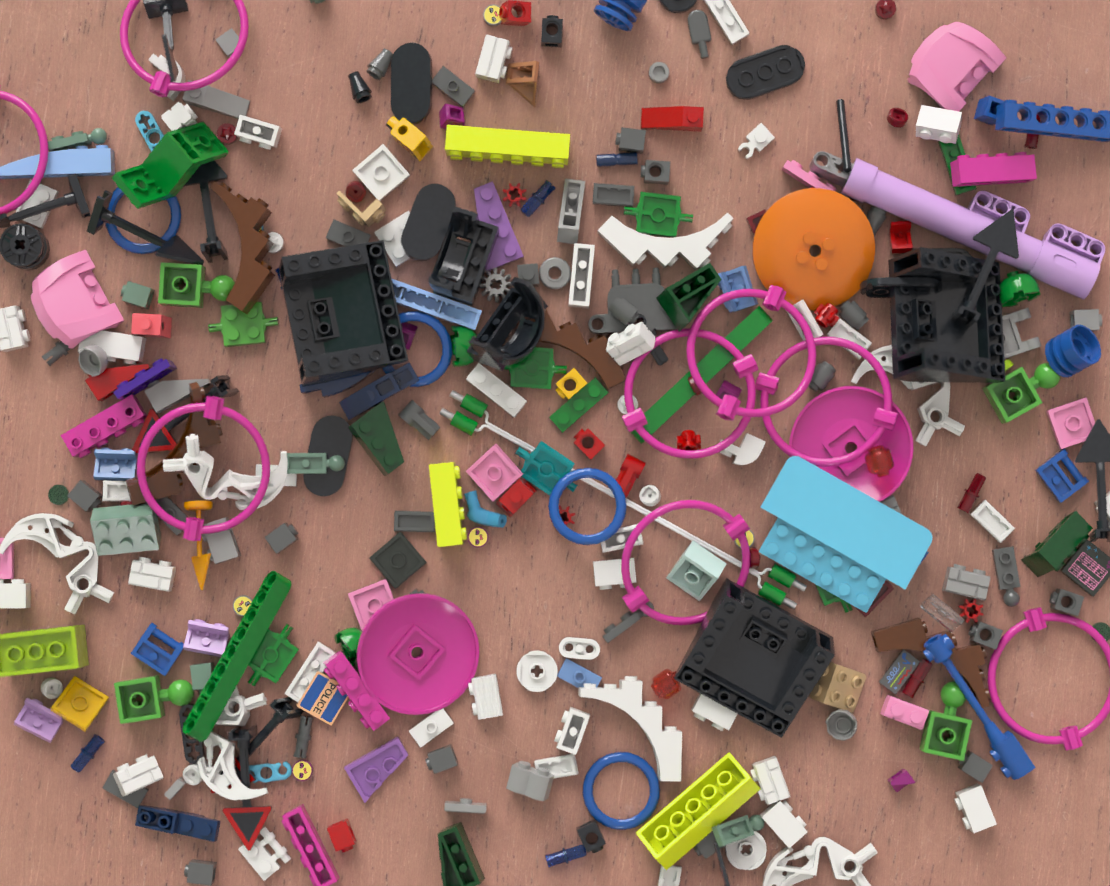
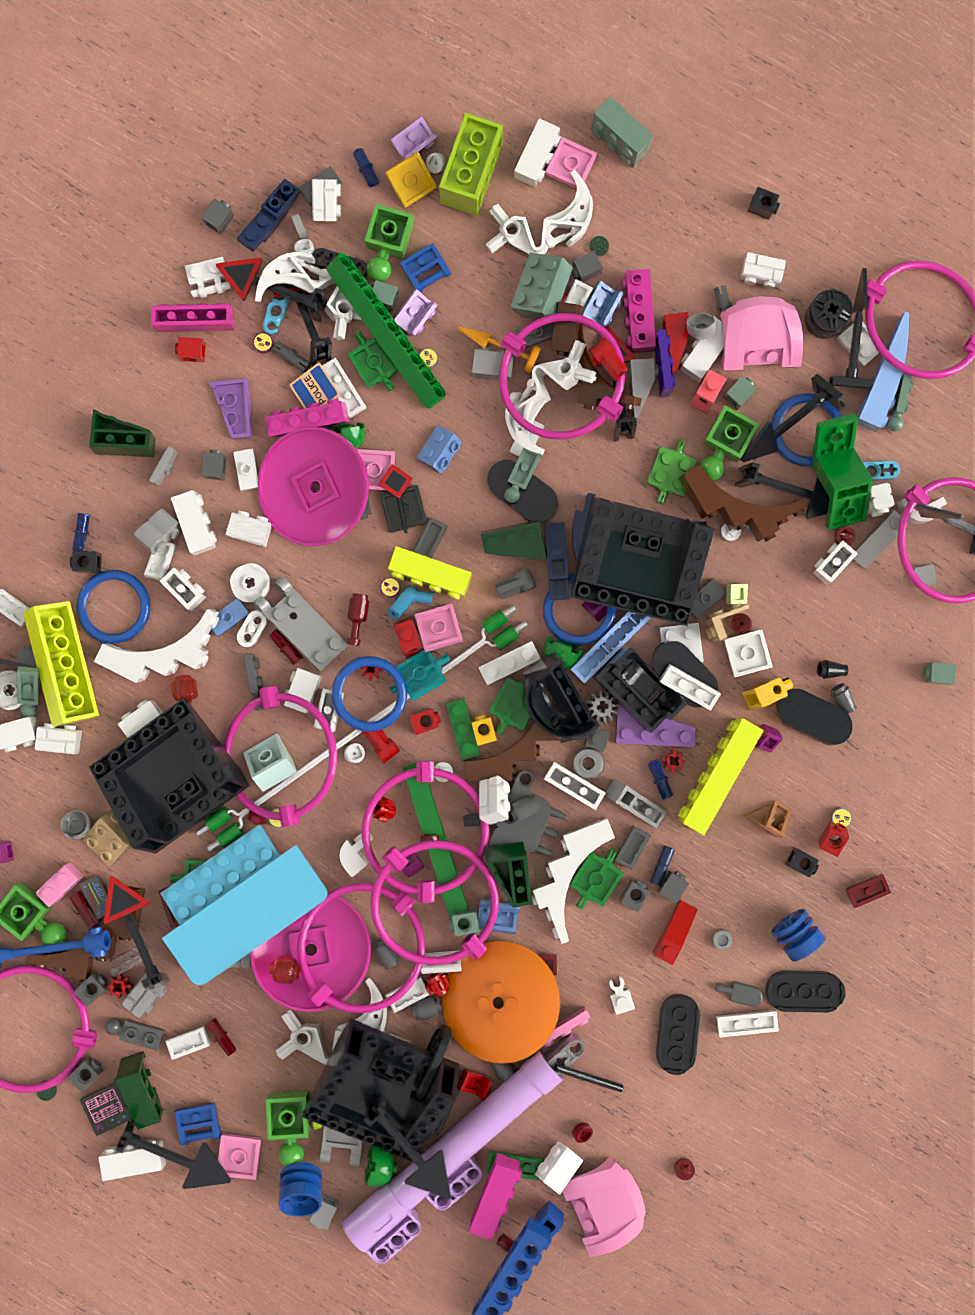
camera: 120 degrees right, 0 degrees up
(152, 575) = (491, 292): white brick -> none
(166, 434) = (606, 356): none -> red piece
(282, 537) = (470, 418): dark grey brick -> none
(325, 553) = (439, 449): none -> medium blue bracket
(329, 209) = (736, 593): none -> yellowish green plate
(377, 578) = (396, 482): none -> piece
(438, 211) = (690, 687): none -> white plate
(453, 86) = (794, 752): dark grey plate -> none
(493, 58) = (802, 799): white brick -> none
(504, 751) = (194, 522): none -> white brick
(518, 555) = (357, 614): none -> dark red piece
(555, 593) = (308, 632): none -> light grey hinge
(581, 608) = (285, 647): none -> dark red axle
(747, 313) = (471, 916): none -> sand green brick
(891, 643) = (122, 903): none -> black piece

